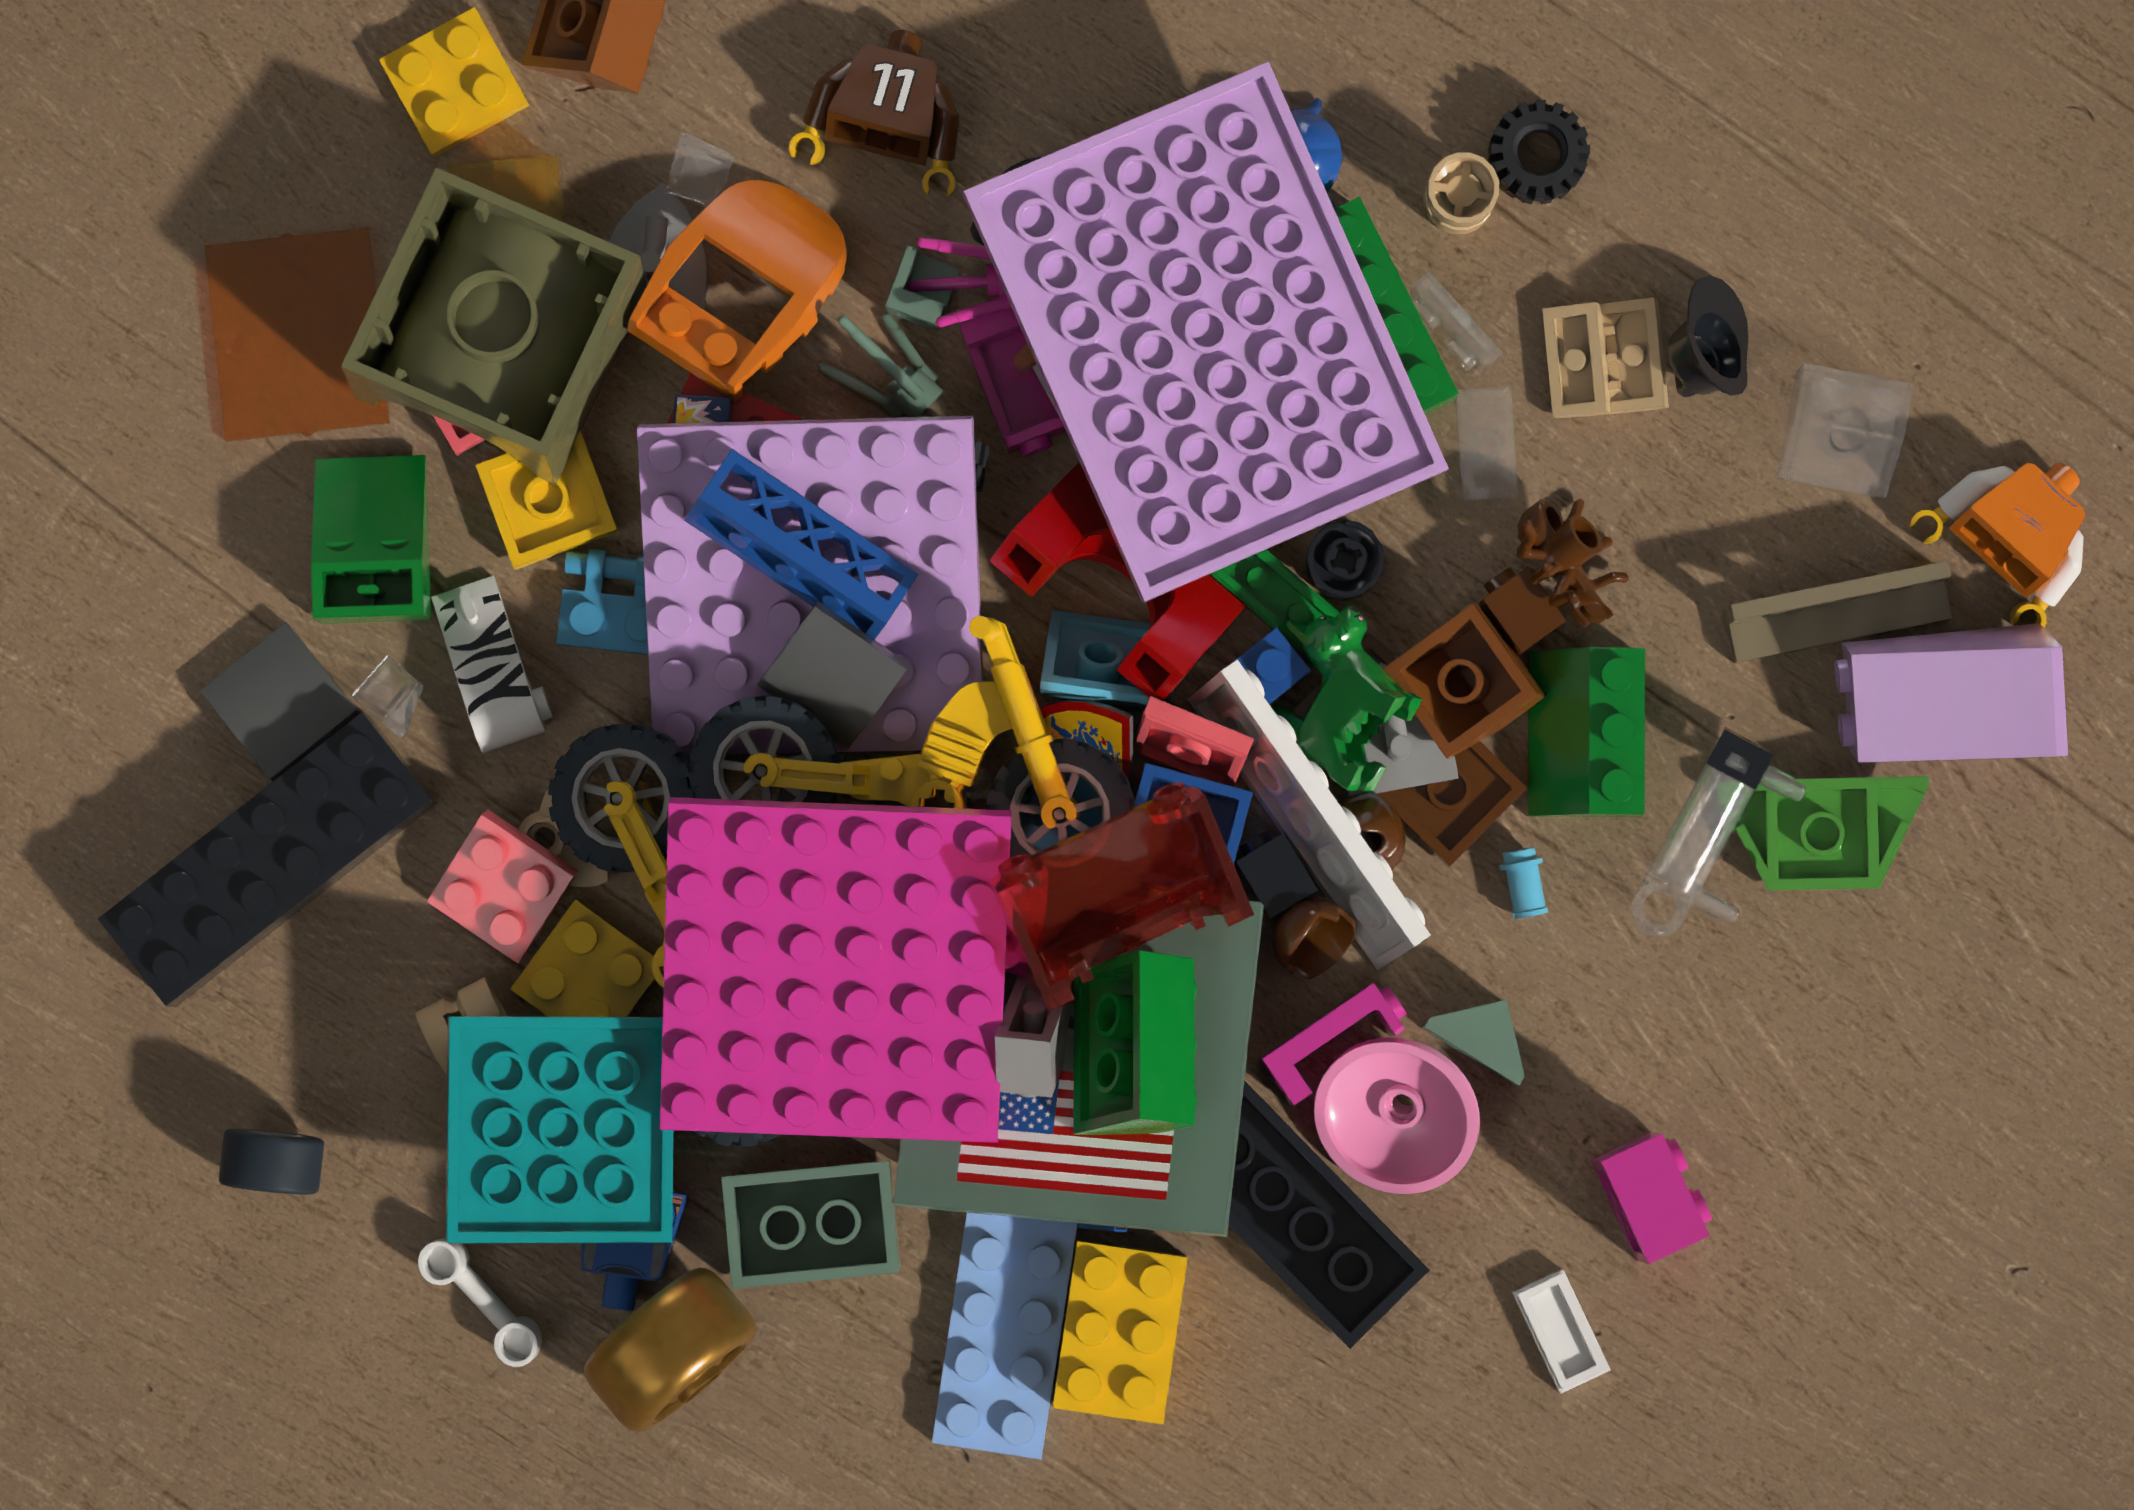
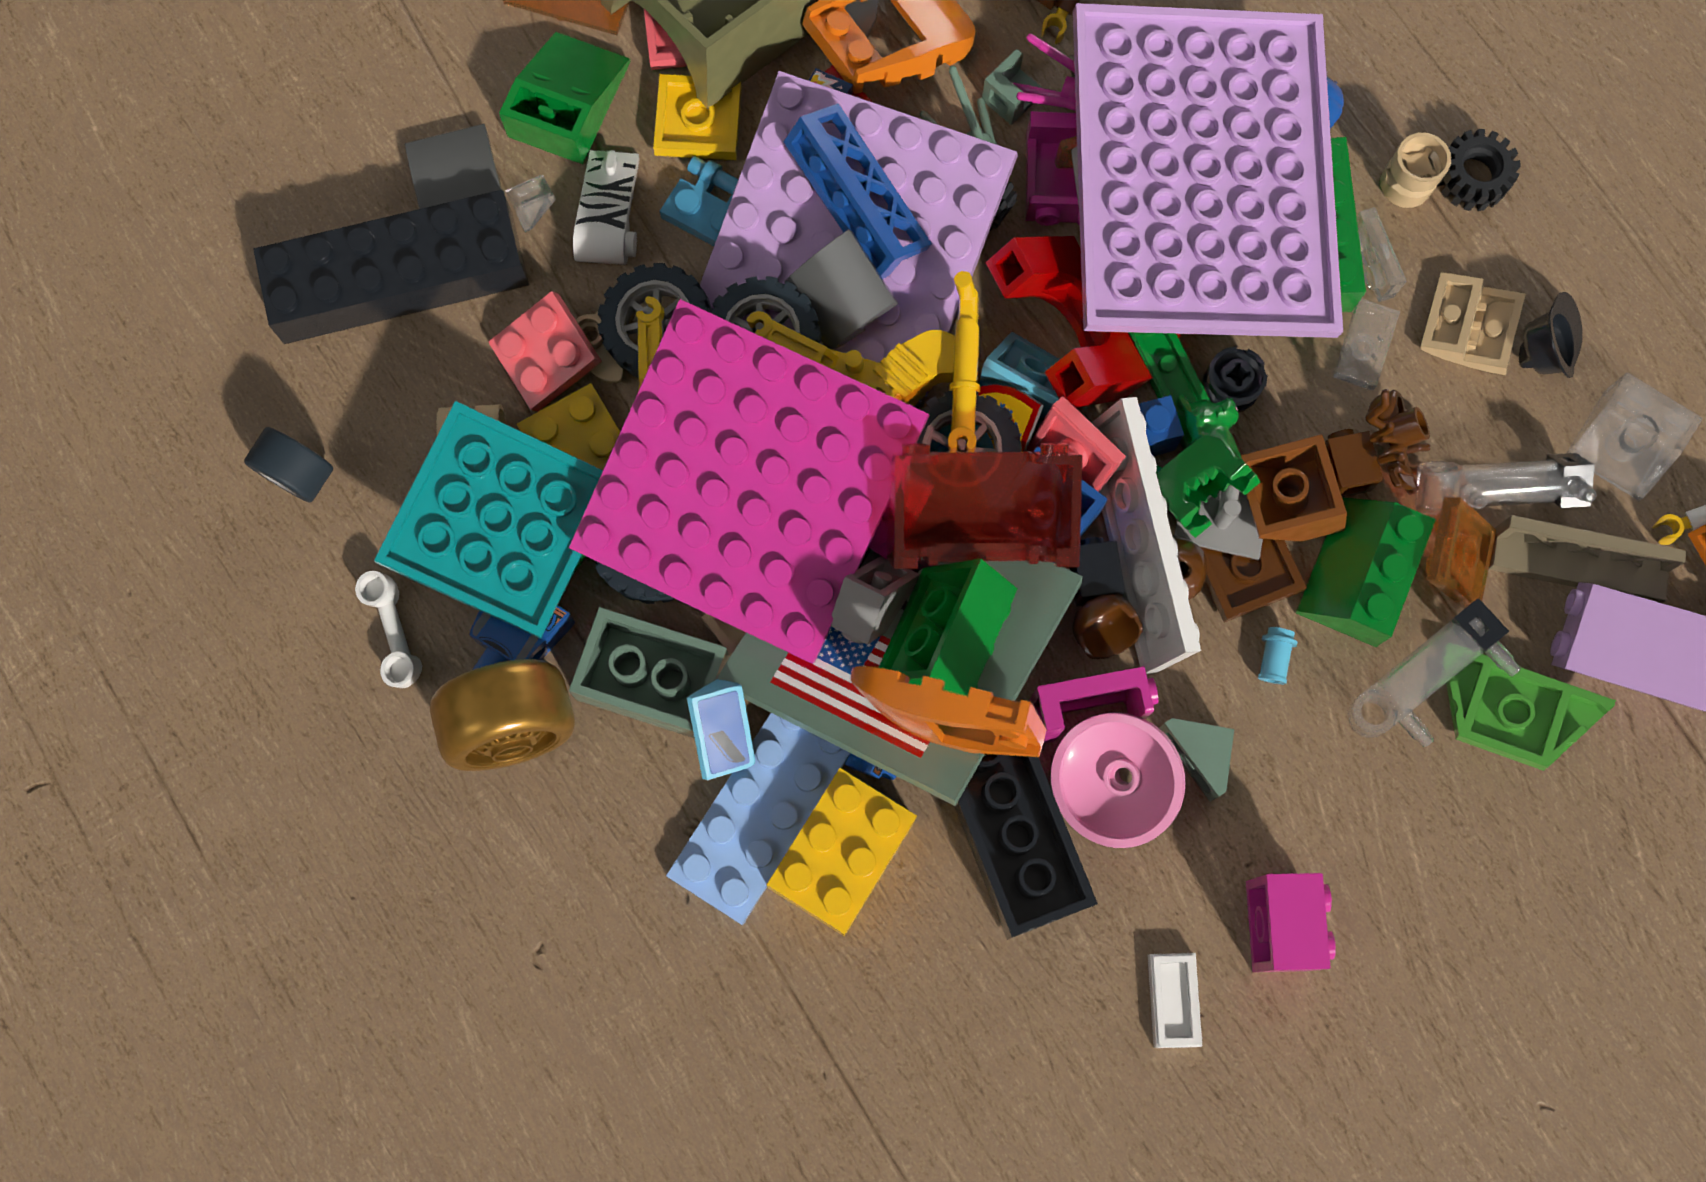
camera: 25 degrees right, 10 degrees down
(924, 1256) = (721, 729): none -> slope
(1191, 1153) = (953, 720): none -> orange slope
(1649, 592) = (1557, 480): none -> clear piece
(1691, 672) = (1460, 552): none -> clear orange plate

